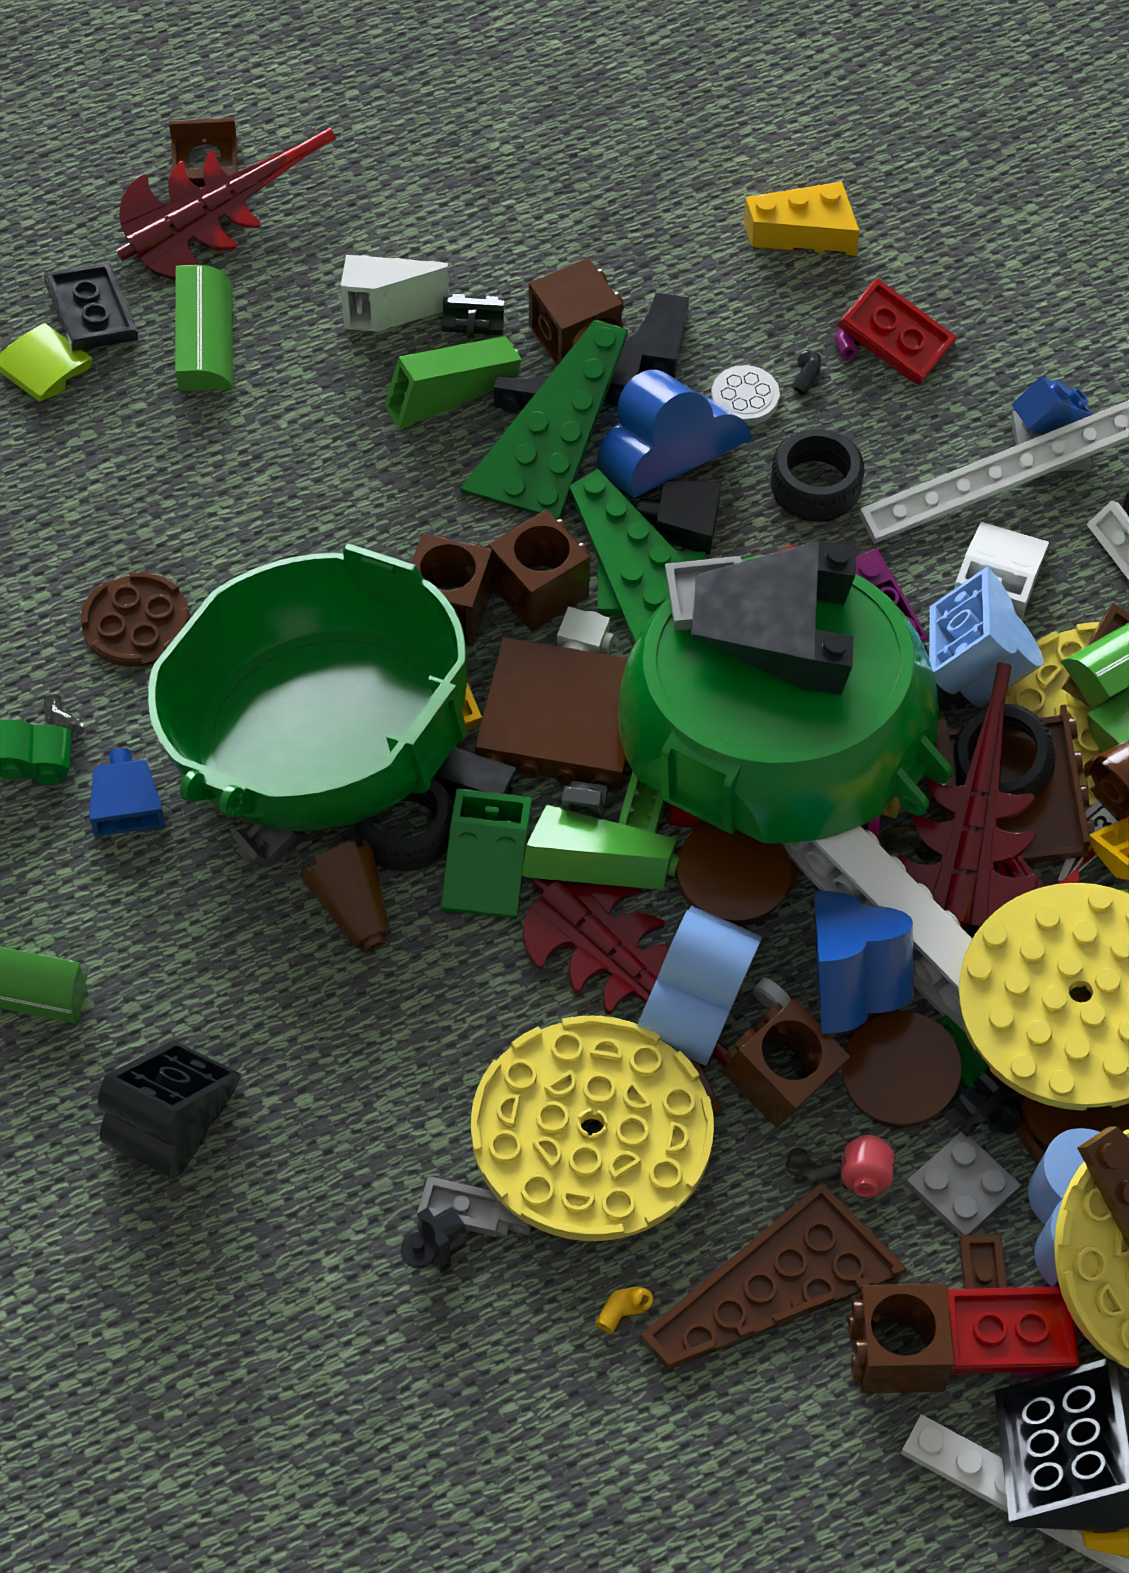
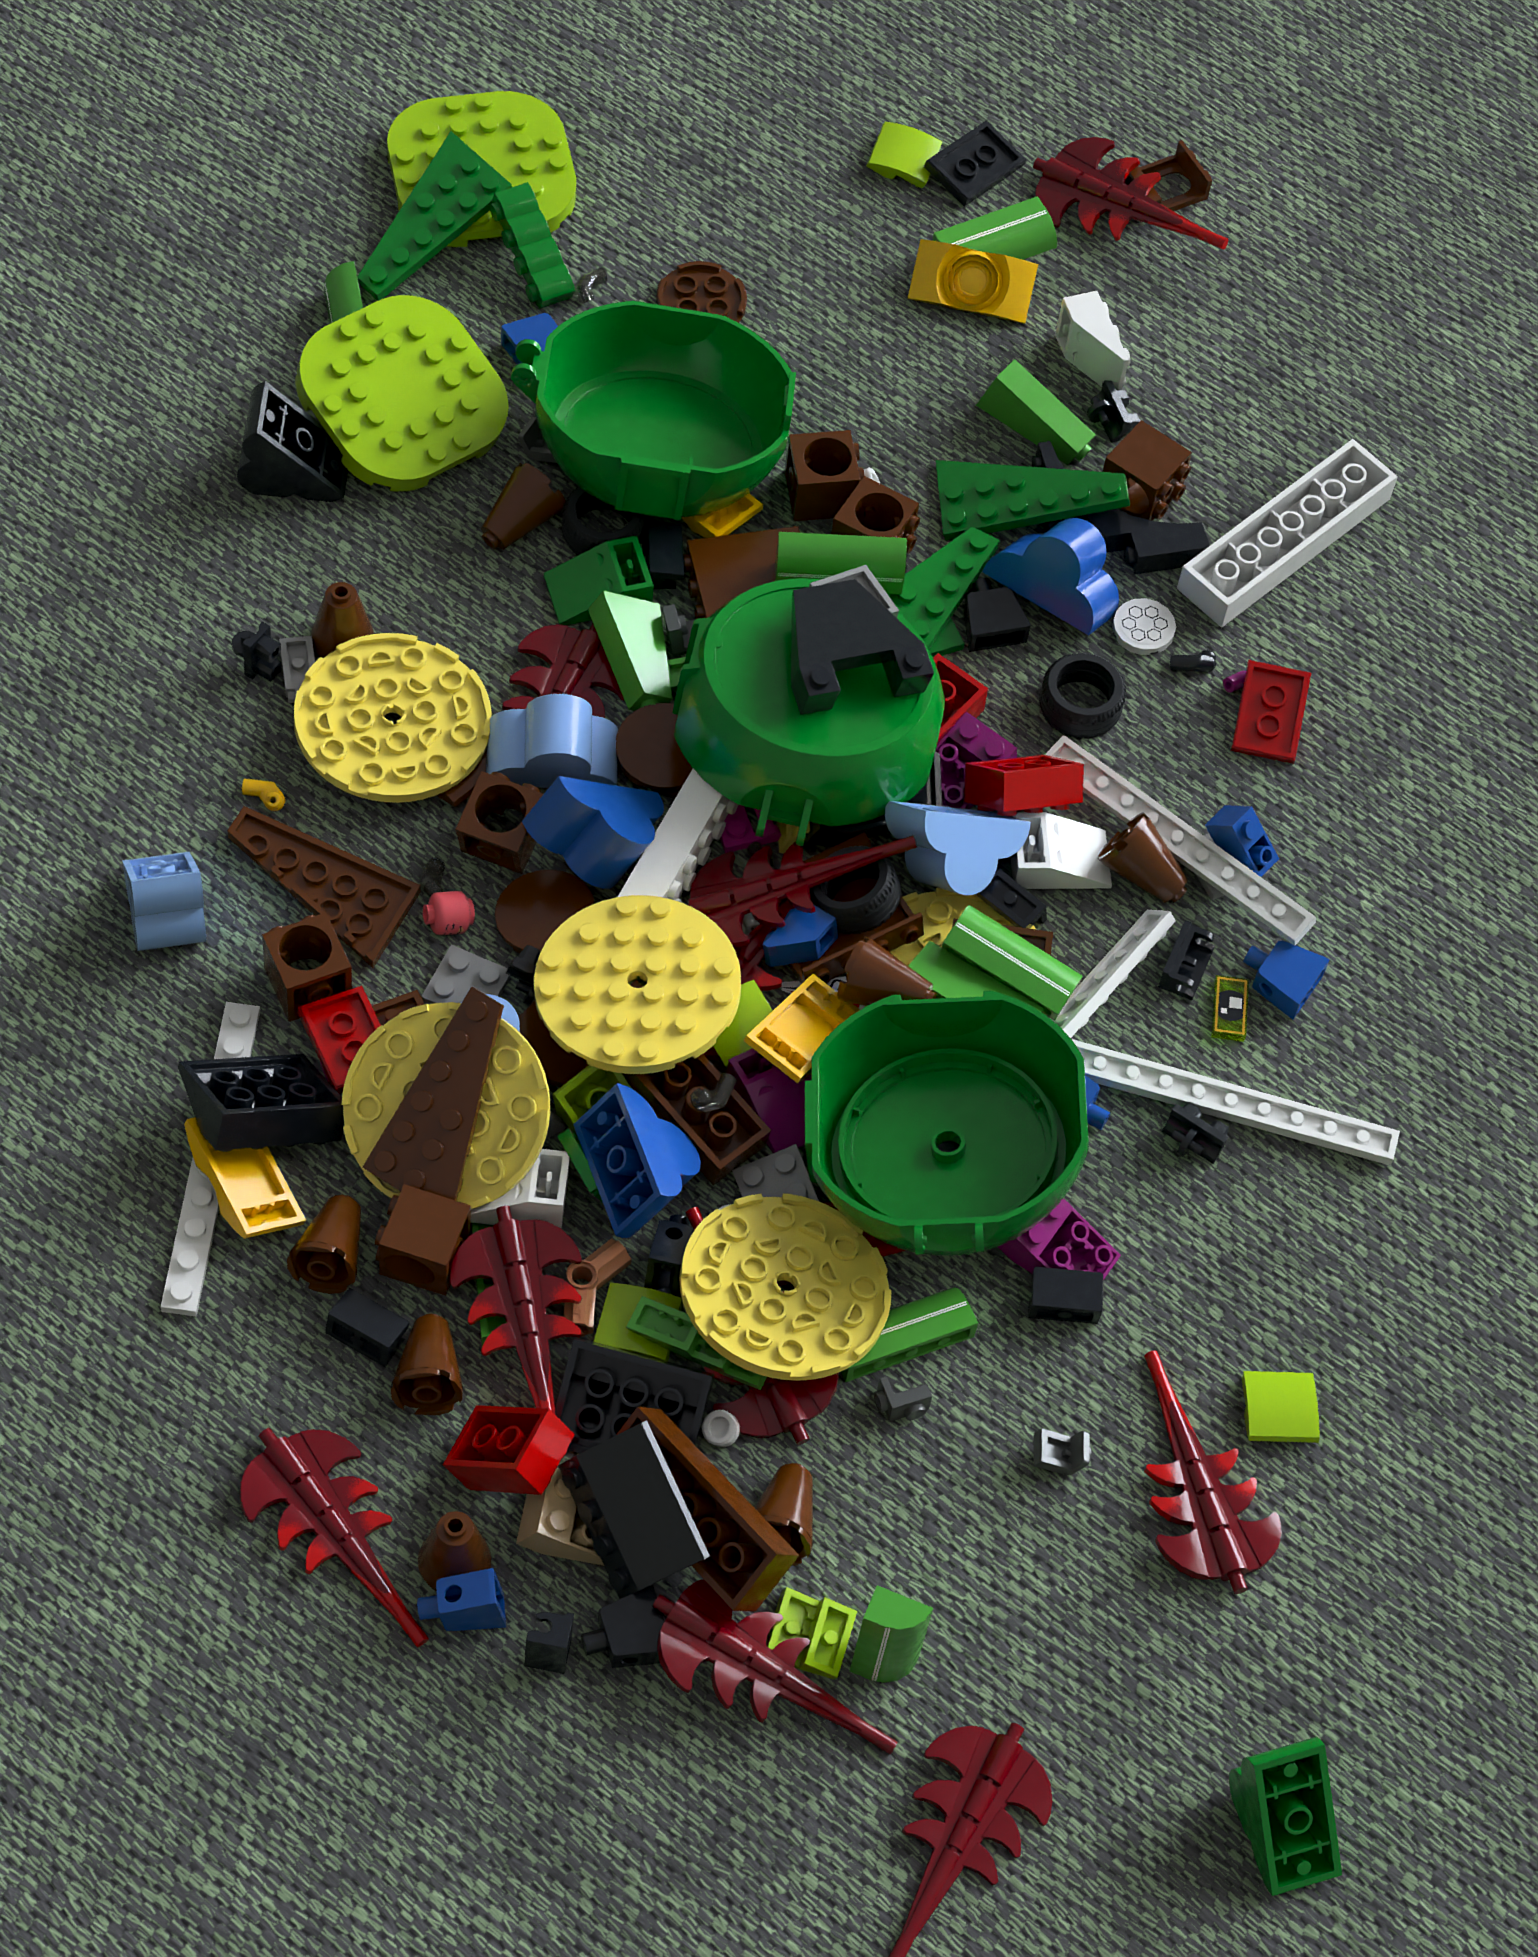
camera: 60 degrees right, 0 degrees up
(138, 953) = (402, 391): none -> lime plate
(250, 366) = (972, 280): none -> yellow slope
(434, 1140) = (339, 619): none -> reddish brown cone
(586, 611) = (830, 554): none -> bright green brick
(696, 233) = (1286, 533): none -> white brick
(746, 1462) = (165, 900): none -> light blue brick
(803, 219) = (1352, 608): yellow wedge -> none
(927, 557) = (1024, 784): none -> red brick
(1035, 499) = (1145, 860): none -> reddish brown cone
(1046, 821) = (801, 939): none -> blue slope
(1057, 625) = (1013, 901): none -> black panel

